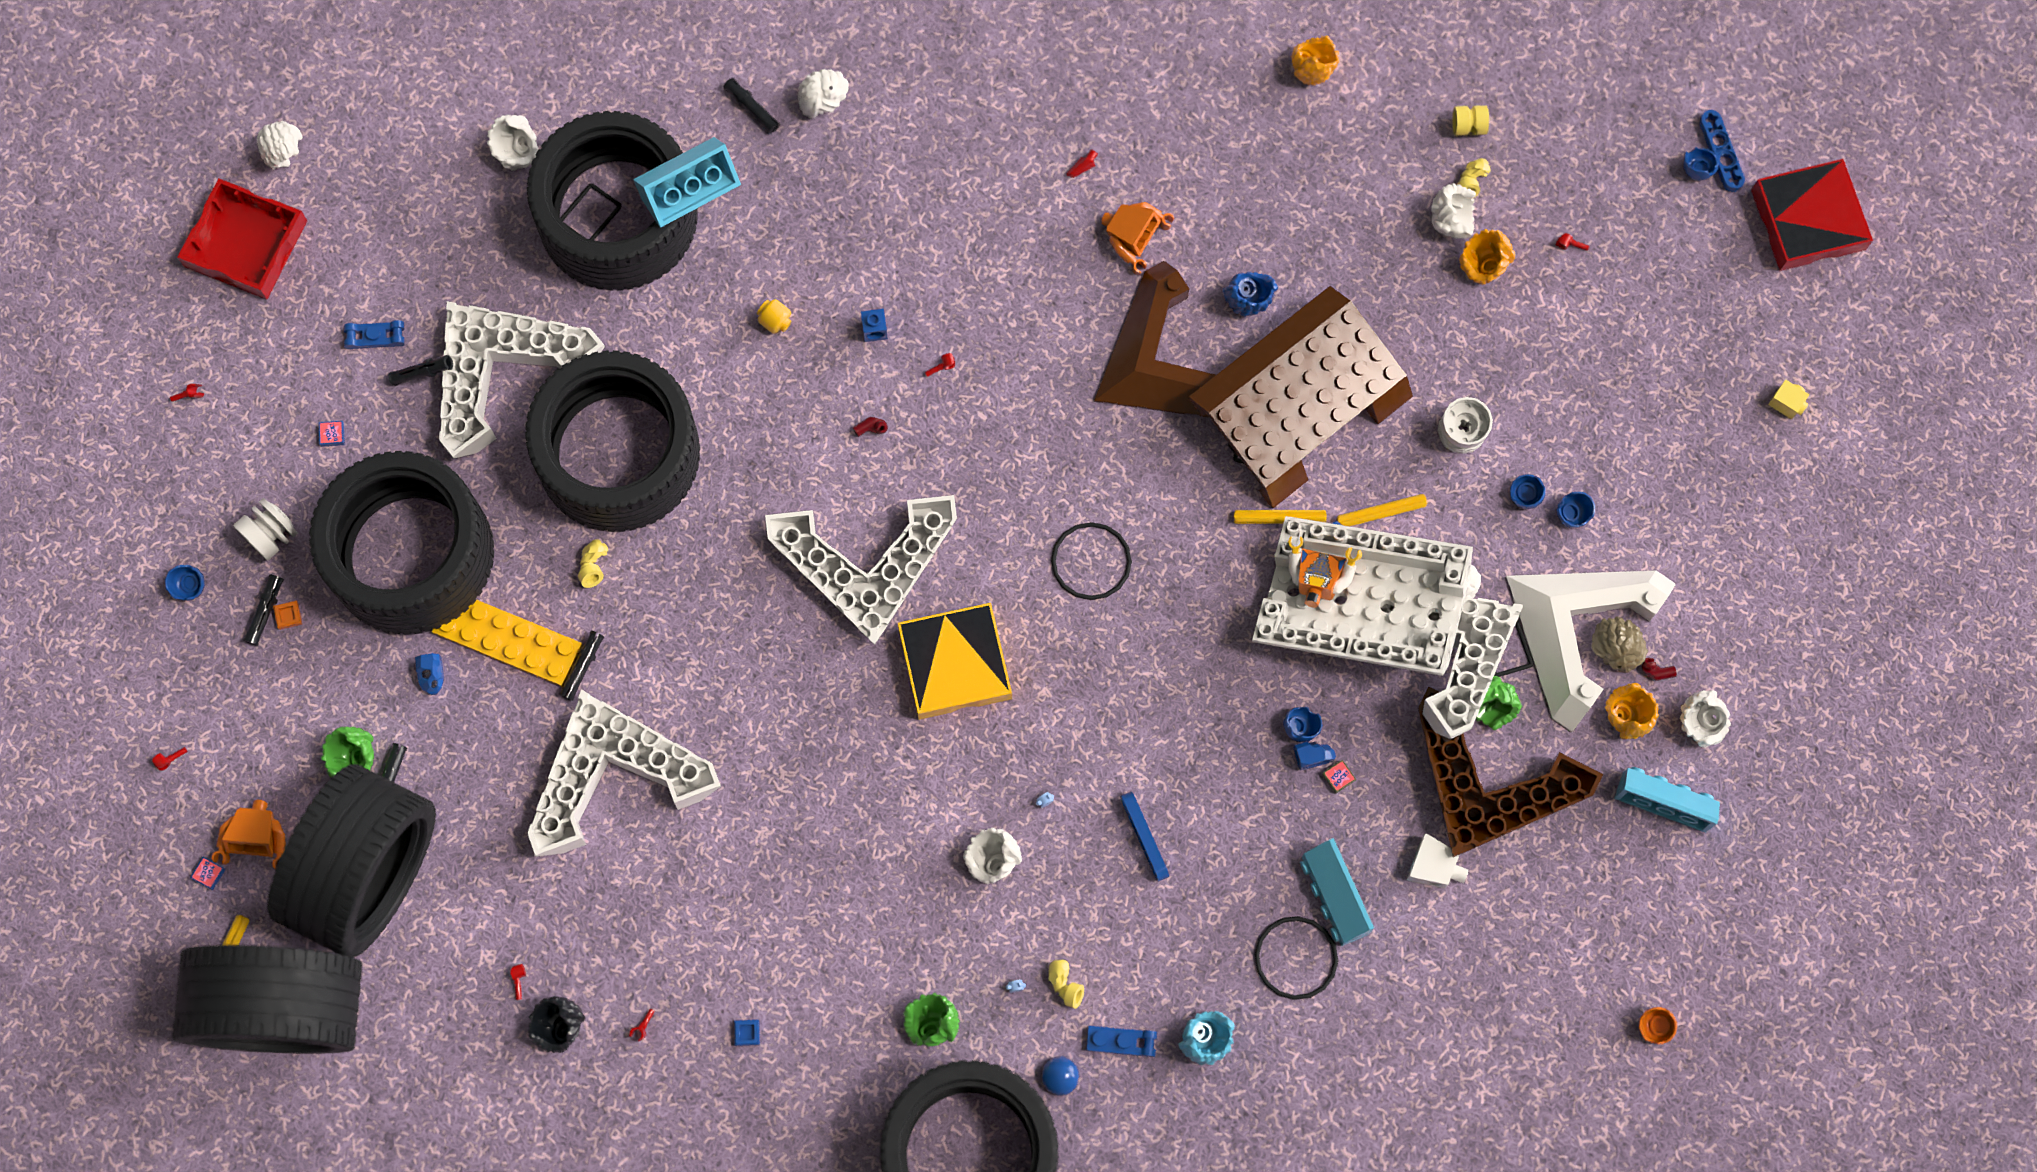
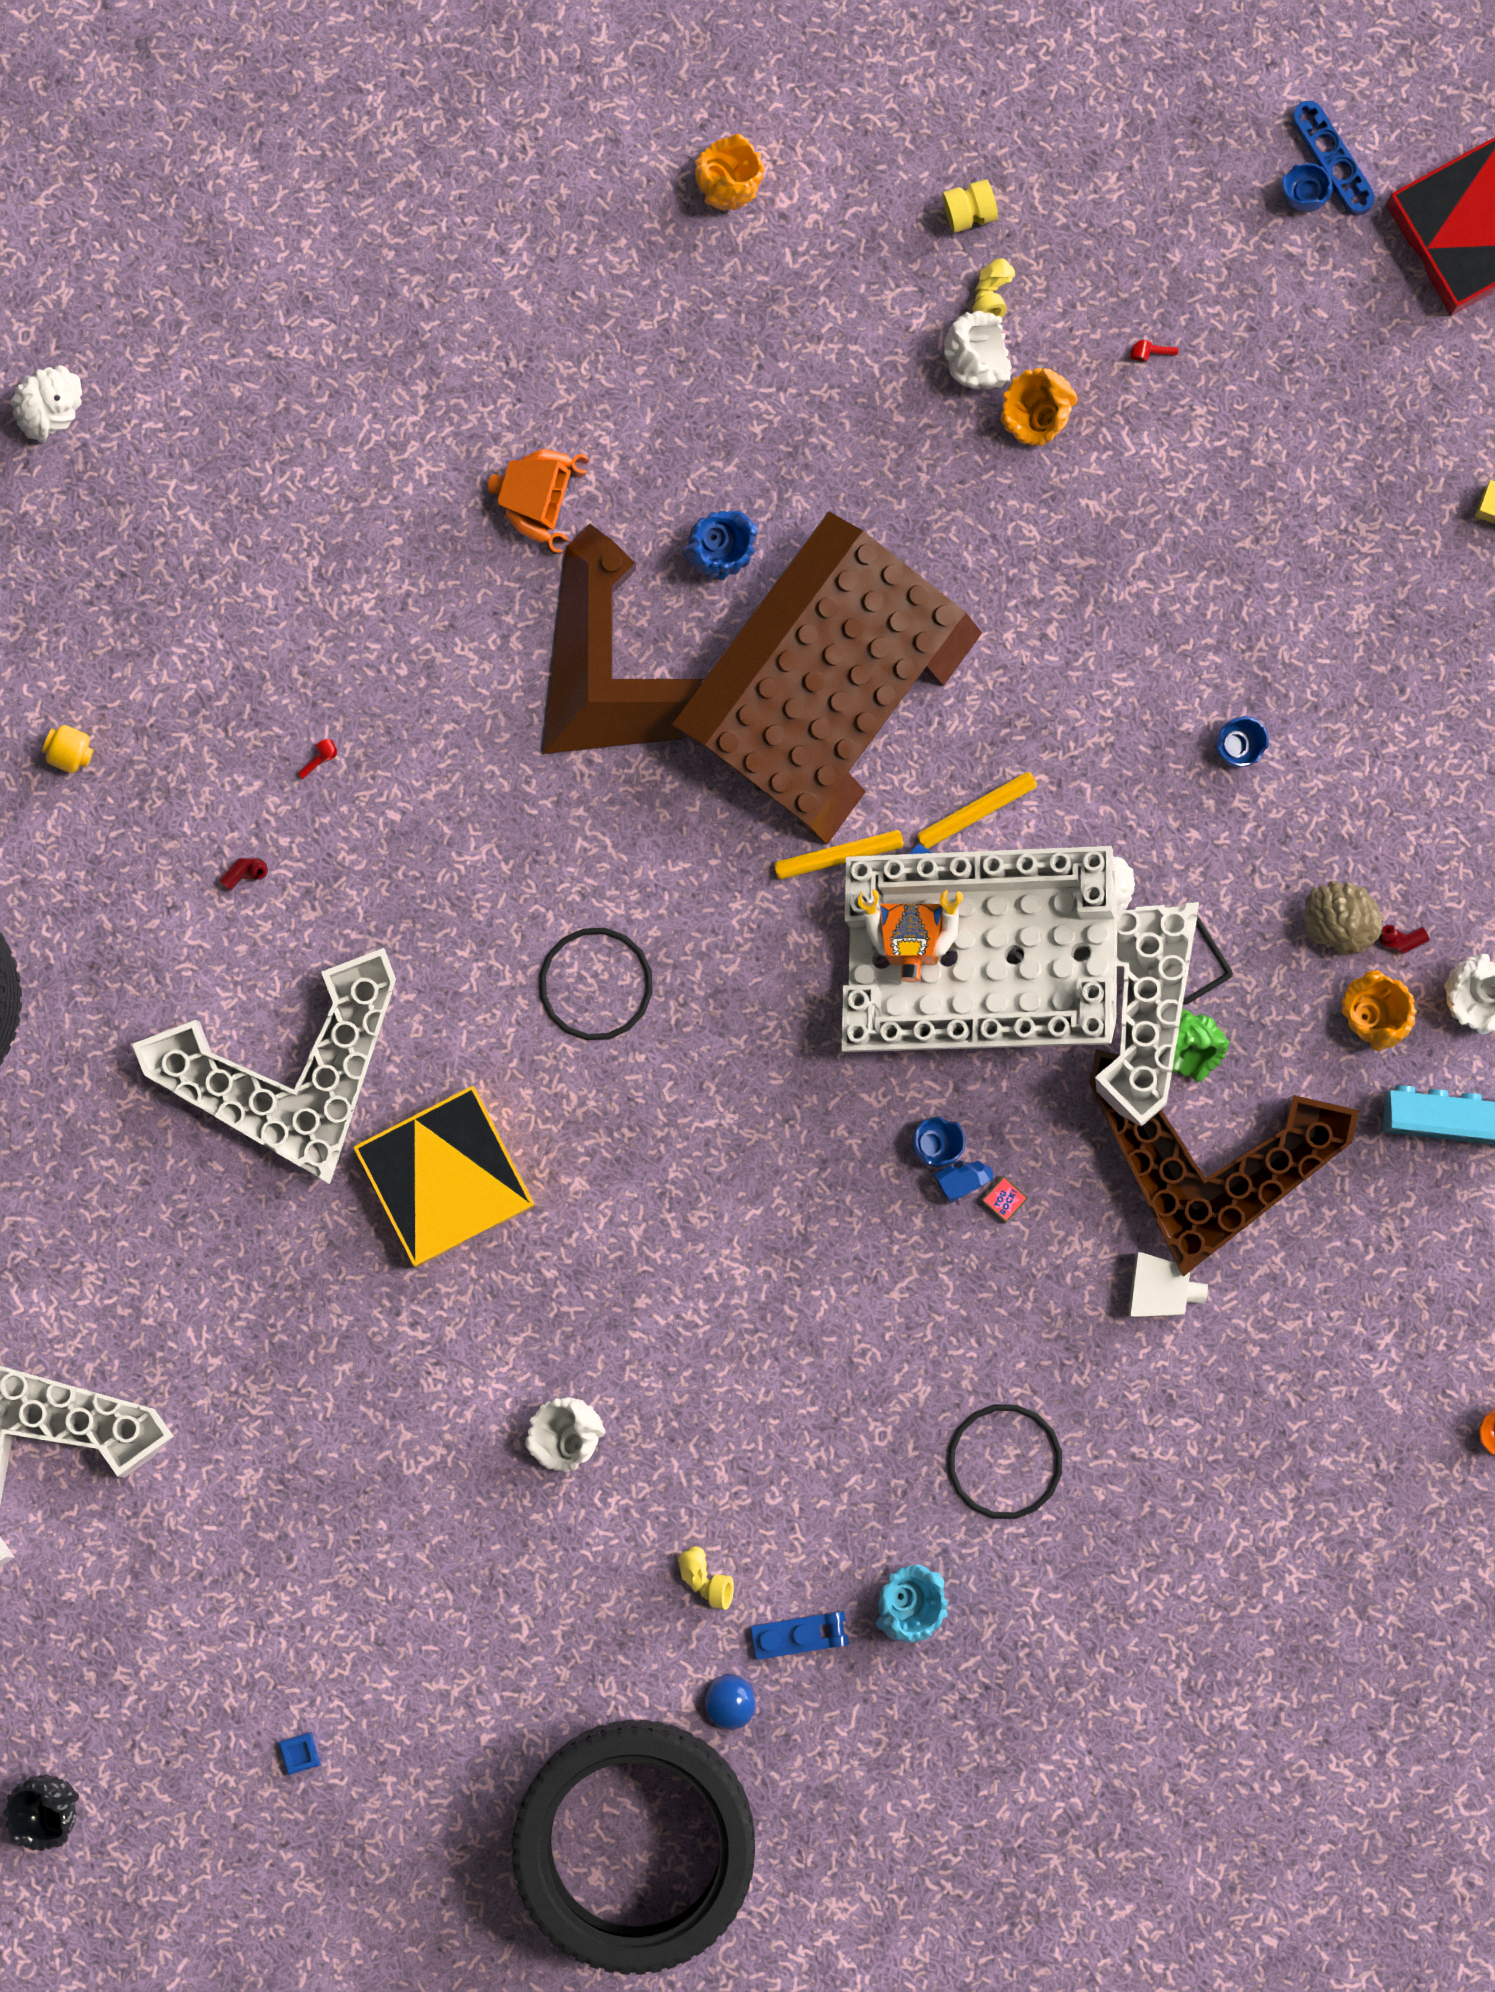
camera: 10 degrees left, 10 degrees up
(643, 1025) = (157, 1783): red hand -> none
(874, 325) = (210, 726): blue brick -> none
(931, 1020) = (540, 1677): bright green hair -> none
(1015, 986) = (640, 1598): light blue piece -> none
(1045, 799) = (616, 1335): light blue piece -> none
(1083, 164) = (441, 411): red bar -> none
(1144, 836) = (762, 1351): blue beam -> none
(1337, 893) = (1038, 1363): medium azure slope -> none
(1468, 413) = (1062, 642): white wheel -> none
(1527, 491) = (1173, 726): blue hair -> none
(1550, 633) = (1231, 892): white wedge -> none

